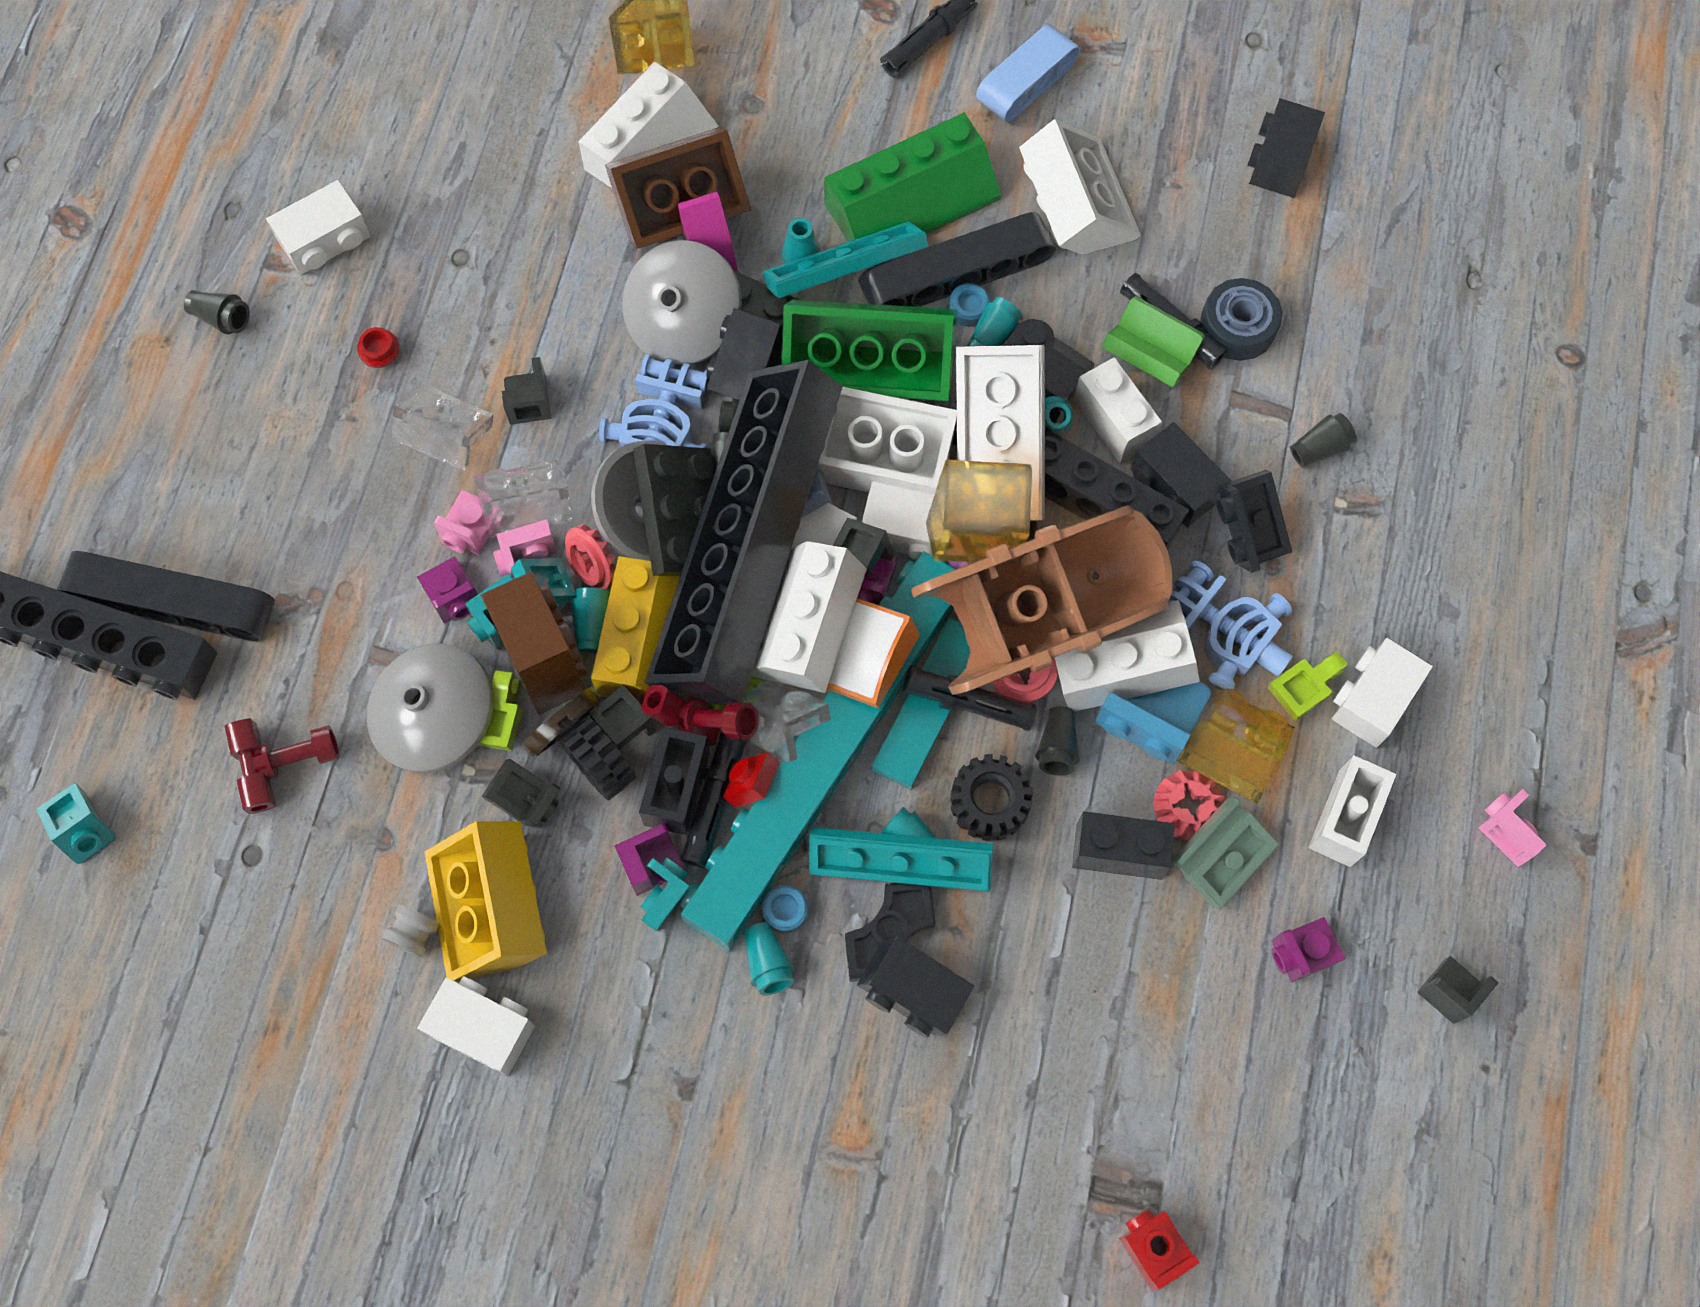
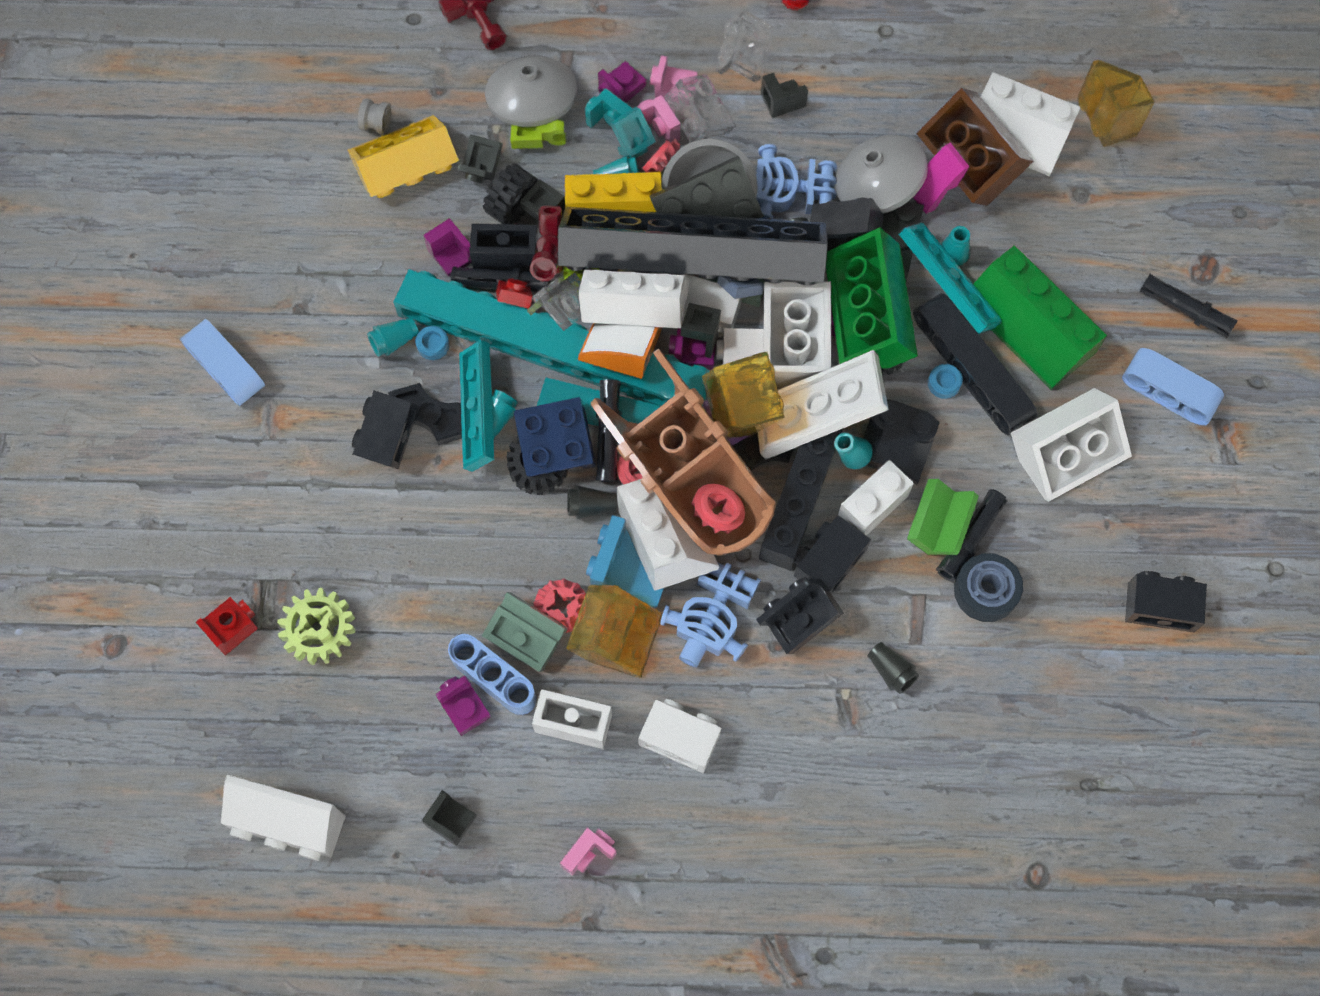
camera: 80 degrees right, 0 degrees up
(477, 1025) = (318, 170): white brick -> none
(537, 641) = (578, 129): reddish brown brick -> none
(560, 722) = (531, 164): dark brown tile -> none
(662, 902) = (421, 260): teal bracket -> none
(755, 1210) = (222, 362): none -> light blue beam
(975, 760) = (554, 437): none -> dark blue bracket
(995, 323) = (926, 398): teal cone -> none
(1109, 569) = (714, 495): none -> coral gear
(1123, 845) = (515, 556): black brick -> none
(1188, 1142) = (305, 635): none -> yellowish green gear
(1289, 888) = (480, 662): none -> light blue beam
(1306, 687) = (672, 677): lime plate -> none
(1440, 1203) = (280, 818): none -> white slope

